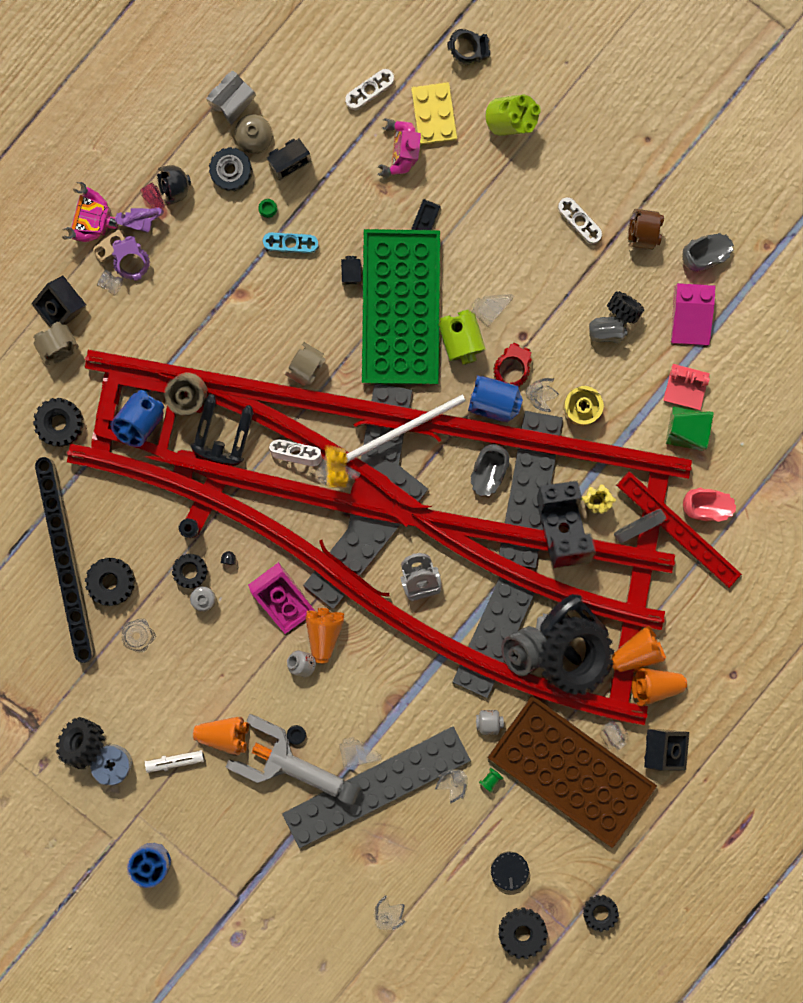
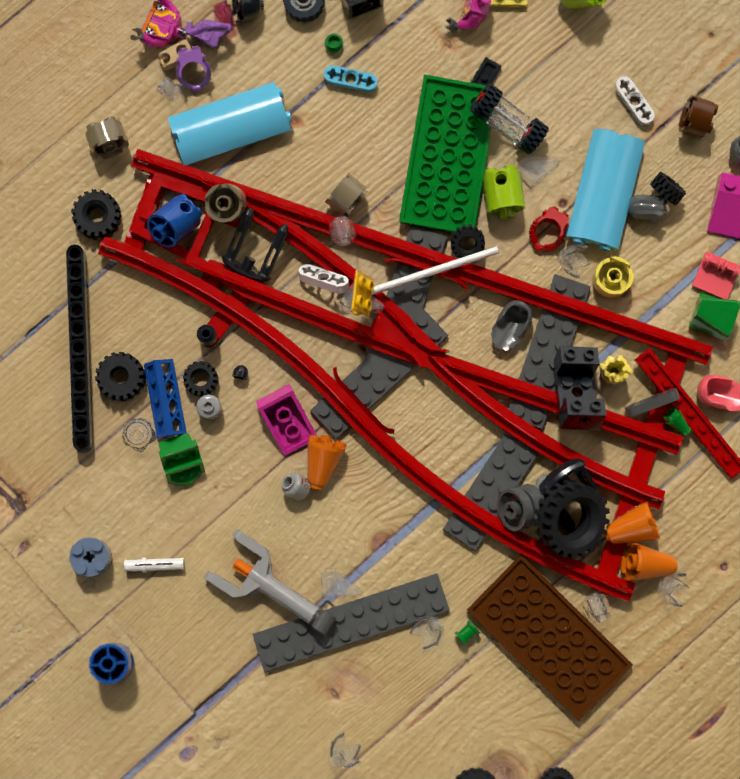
camera: 10 degrees right, 5 degrees down
(58, 302) = (116, 99): black slope -> none
(80, 743) = (63, 530): black tyre -> none
(153, 596) = (161, 398): none -> blue fence
(176, 308) = (230, 123): none -> medium azure cylinder
(183, 654) = (181, 460): none -> green piece
(223, 735) = (207, 545): orange cone -> none
(296, 734) = (279, 557): black tile -> none
(306, 403) = (342, 230): none -> clear head
(351, 270) = (405, 113): black brick -> none
(420, 580) = (428, 422): light grey piece -> none
(433, 382) = (463, 232): none -> black tyre
(455, 262) = (508, 119): none -> plate
(489, 722) = (474, 574): light grey head -> none
(495, 399) = (527, 257): blue cylinder -> none
(509, 870) = (472, 728): black tile -> none
(563, 317) = (605, 189): none -> medium azure cylinder
(666, 749) = (647, 630): black slope -> none
(667, 541) = (676, 421): none -> green cone
(682, 705) = (670, 586): none -> clear piece

